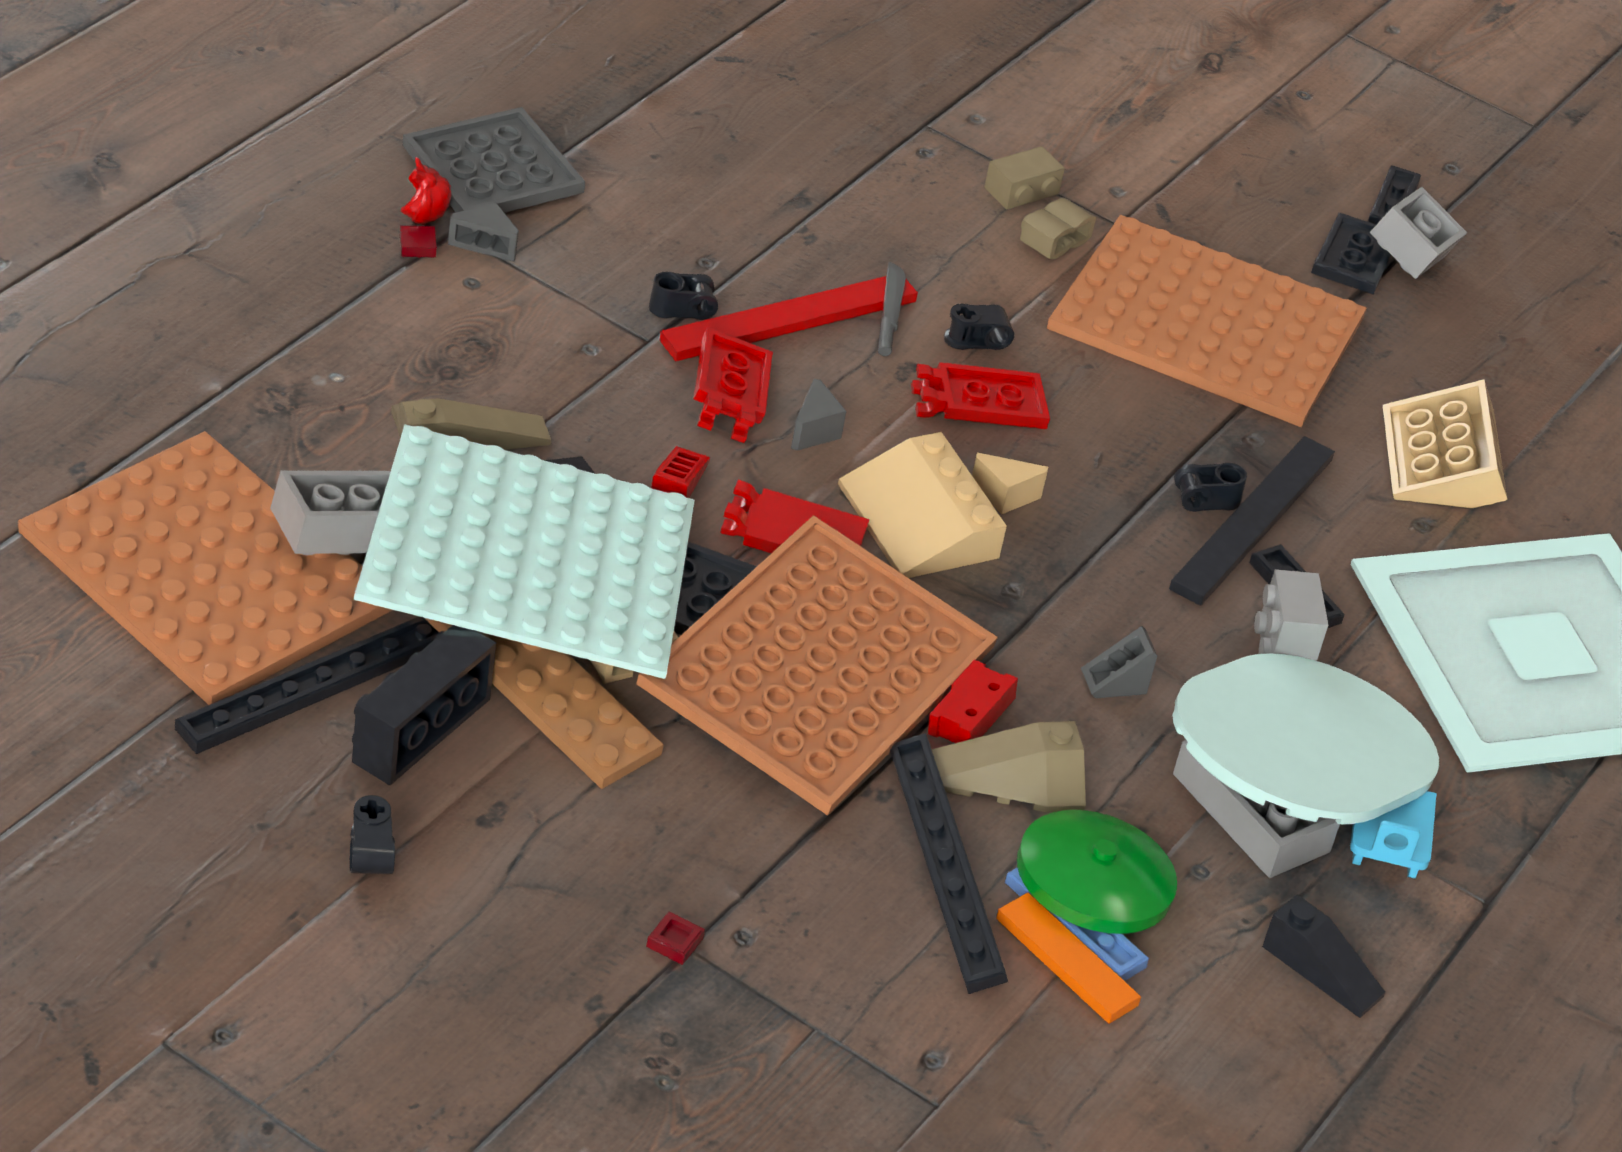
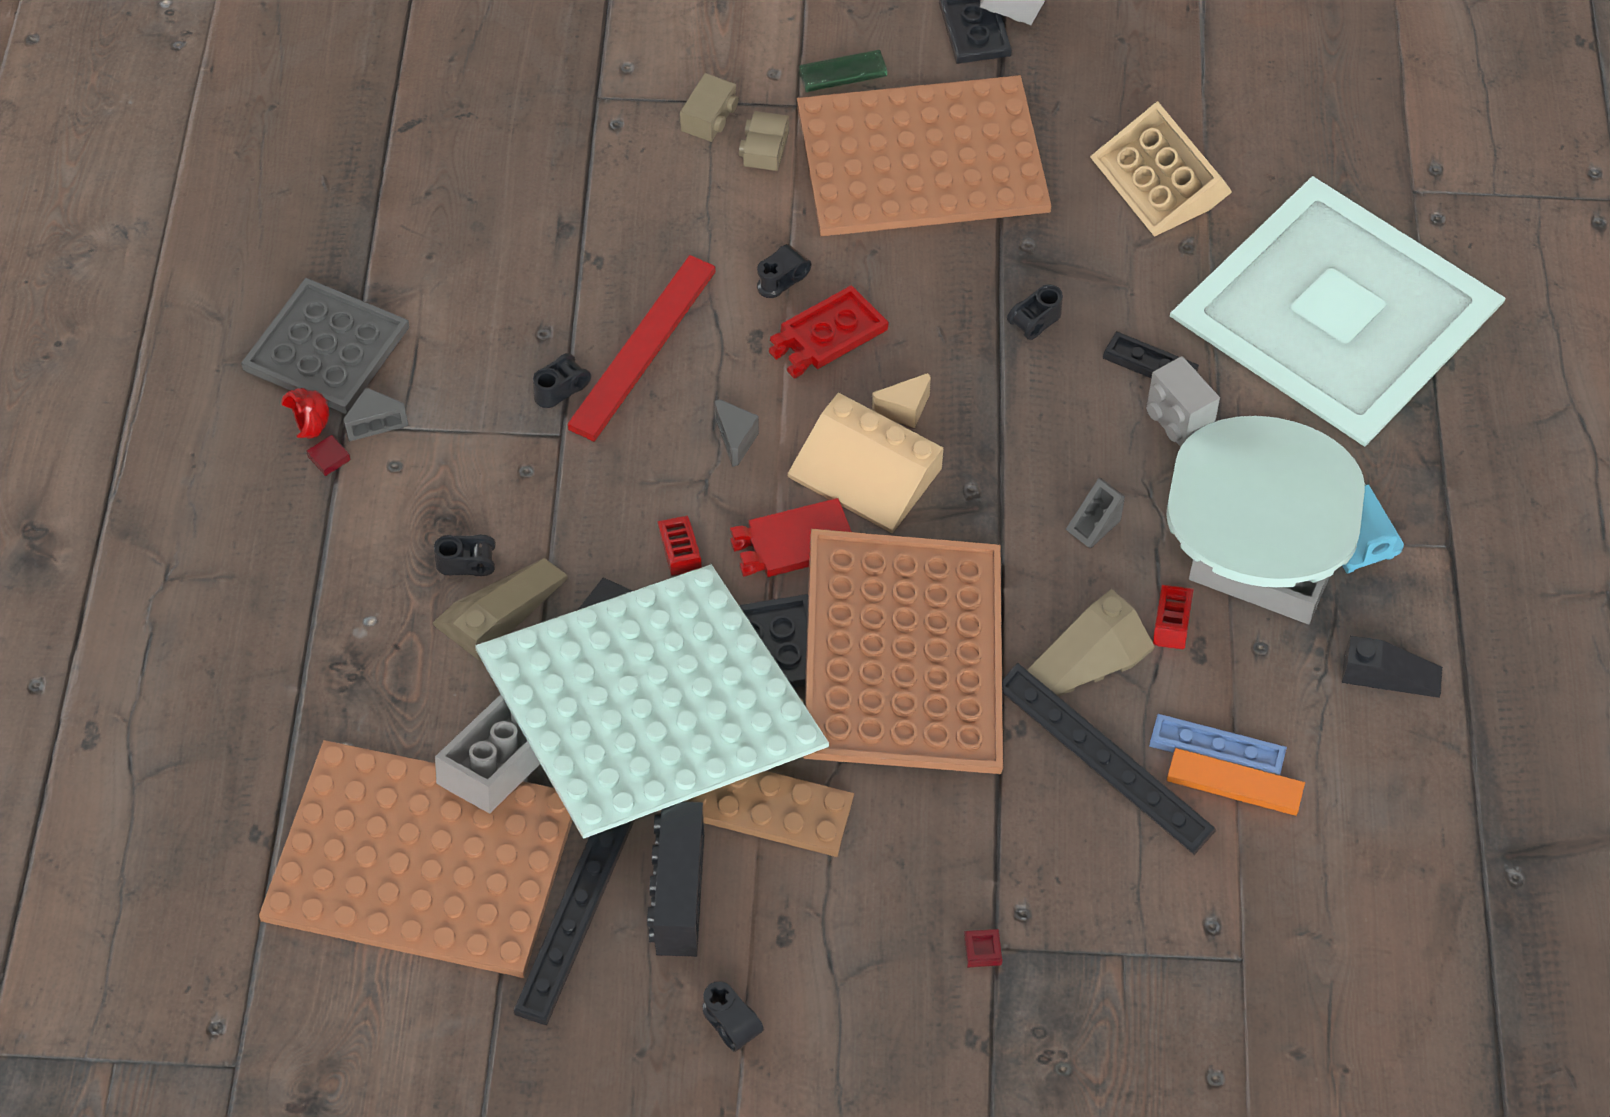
camera: 25 degrees left, 15 degrees up
(465, 370) = (465, 555): none -> black piece
(732, 382) = (654, 438): red tile -> none
(892, 301) = (708, 292): dark grey piece -> none
(972, 704) = (1025, 614): red piece -> none
(1096, 871) = (1205, 699): green dish -> none
(1123, 795) = (1174, 633): none -> red slope
(1187, 220) = (842, 70): none -> clear green tile
(1251, 521) = (1081, 321): black tile -> none

